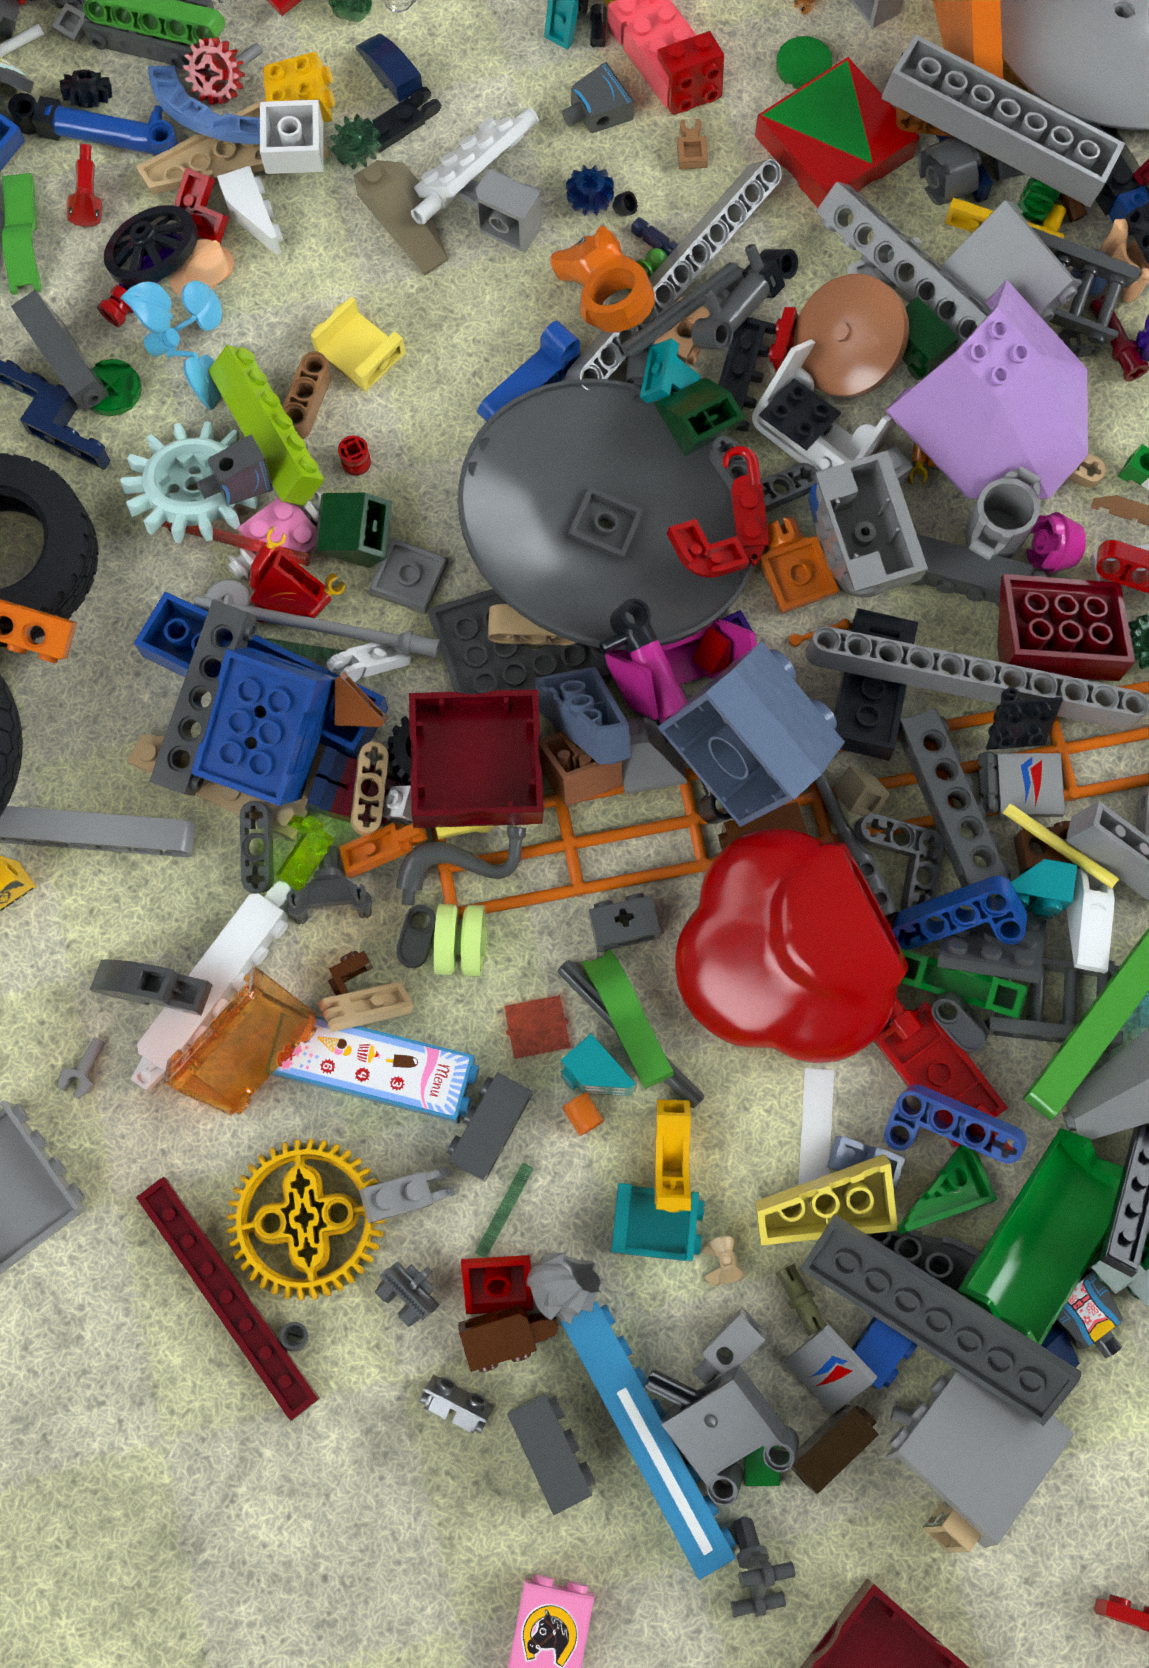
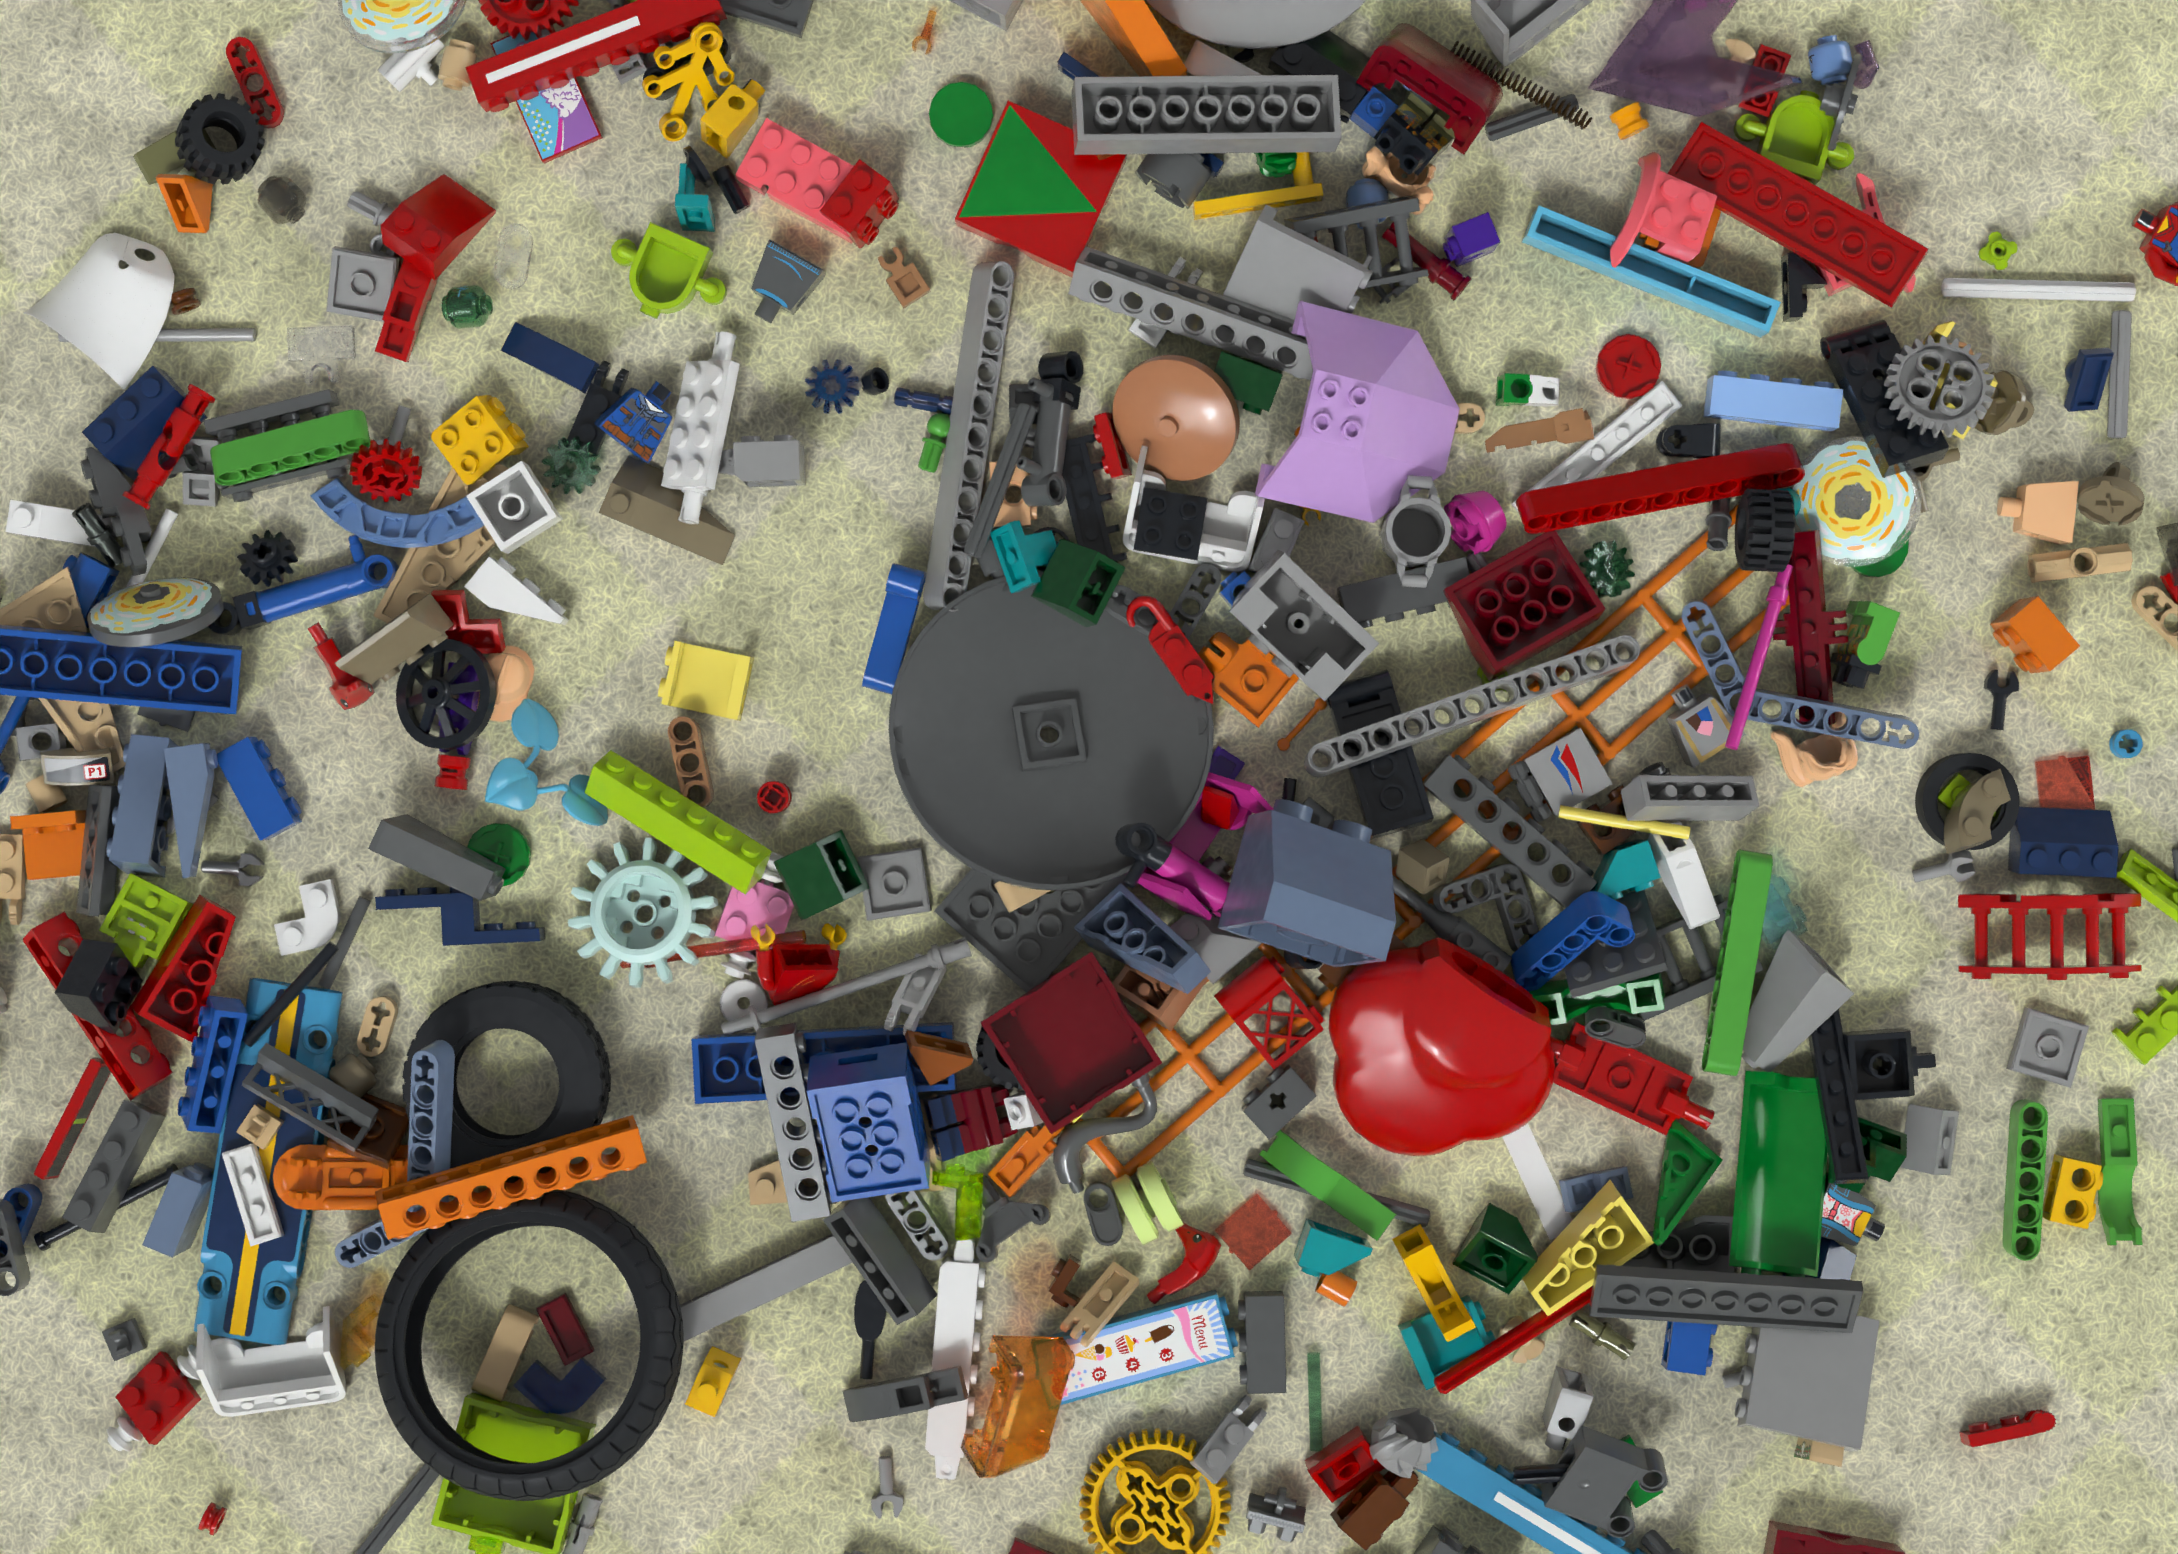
camera: 30 degrees left, 15 degrees up
(18, 231) = (303, 744): bright green piece -> none
(137, 180) = (398, 642): none -> dark tan slope
(162, 912) = (869, 1322): none -> black piece
(204, 859) = (880, 1258): none -> dark grey brick
(237, 473) = (701, 888): dark grey torso -> none
(306, 649) = (849, 1007): clear green bar -> none
(364, 764) = (989, 1140): tan beam -> none
(425, 134) = (638, 420): none -> torso
(478, 1017) = (1200, 1254): none -> red animal
(516, 53) = (667, 271): none -> lime piece
(603, 270) = (900, 475): orange animal -> none
(660, 814) = (1251, 992): none -> red piece
(705, 558) = (1161, 730): red plate -> none
(715, 1249) = (1506, 1344): none -> red axle
(745, 1164) = (1496, 1249): none -> dark green slope
(830, 1369) = (1656, 1380): light grey tile -> none
(834, 1446) = (1691, 1441): dark brown brick -> none
(958, 1130) = (1700, 1121): blue beam -> none
(1022, 721) = (1525, 731): black hinge -> none

